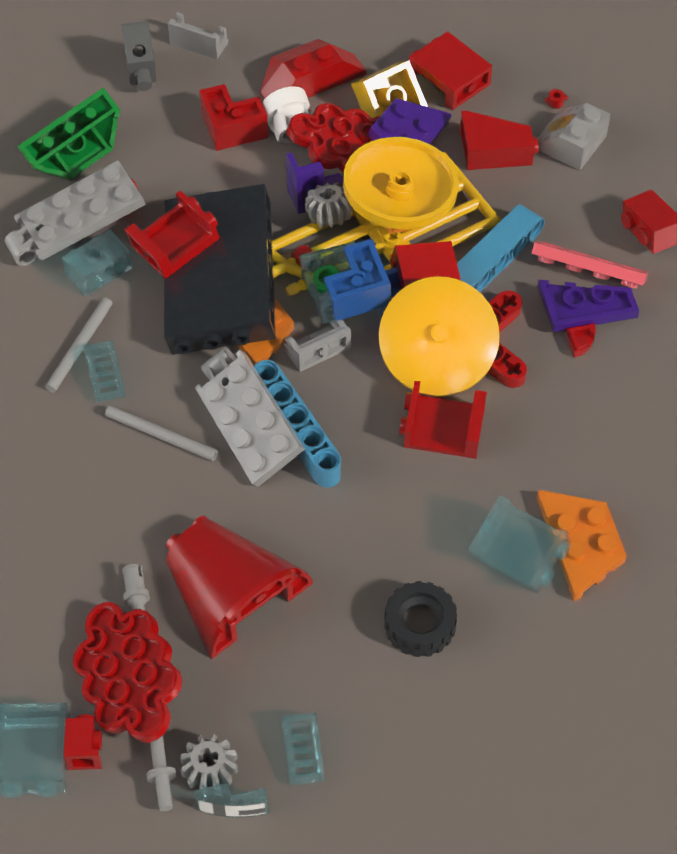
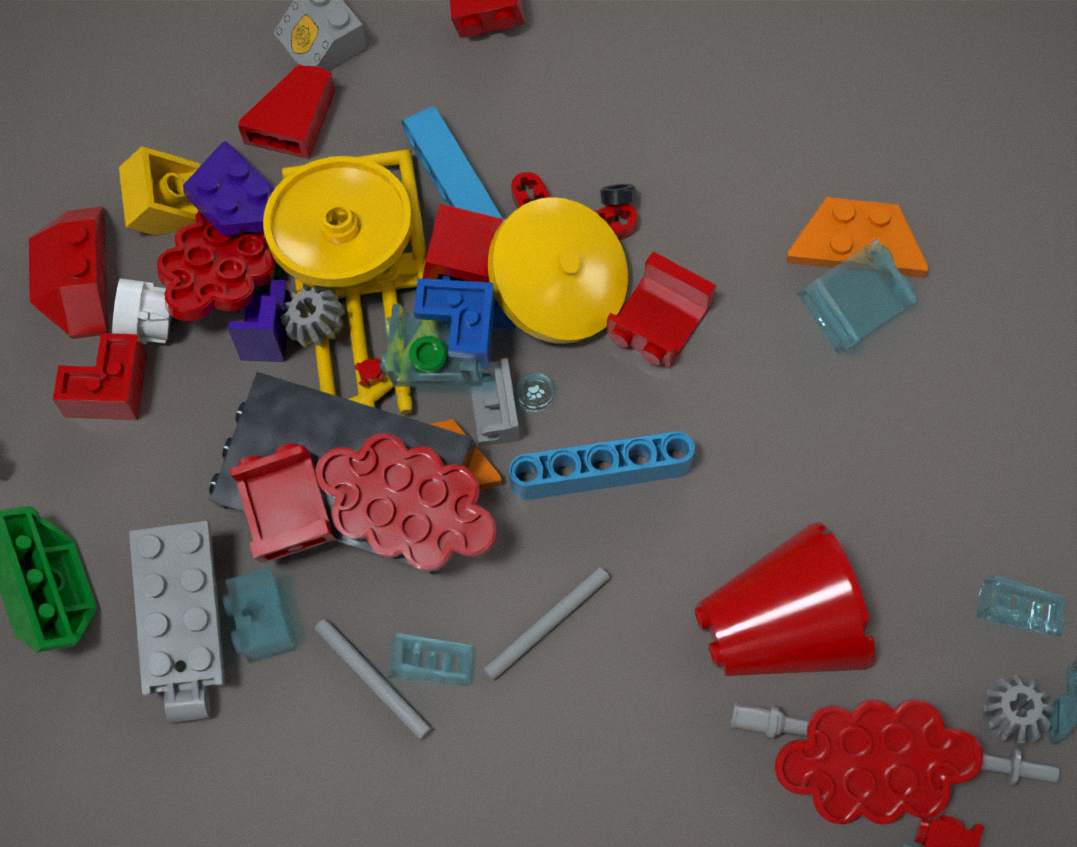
camera: 65 degrees left, 10 degrees up
(203, 302) = (406, 502): none -> red plate
(248, 415) = (578, 513): light grey hinge -> none
(341, 366) = (535, 392): none -> clear light blue tile
(420, 643) = (912, 402): black tyre -> none
(452, 68) = (155, 112): red panel -> none
(532, 360) = (618, 194): none -> black tile
(556, 98) = (254, 28): red piece -> none
(577, 261) = (517, 81): coral plate -> none
(577, 306) = (564, 116): dark purple wing -> none
(580, 338) = (602, 138): red tile -> none

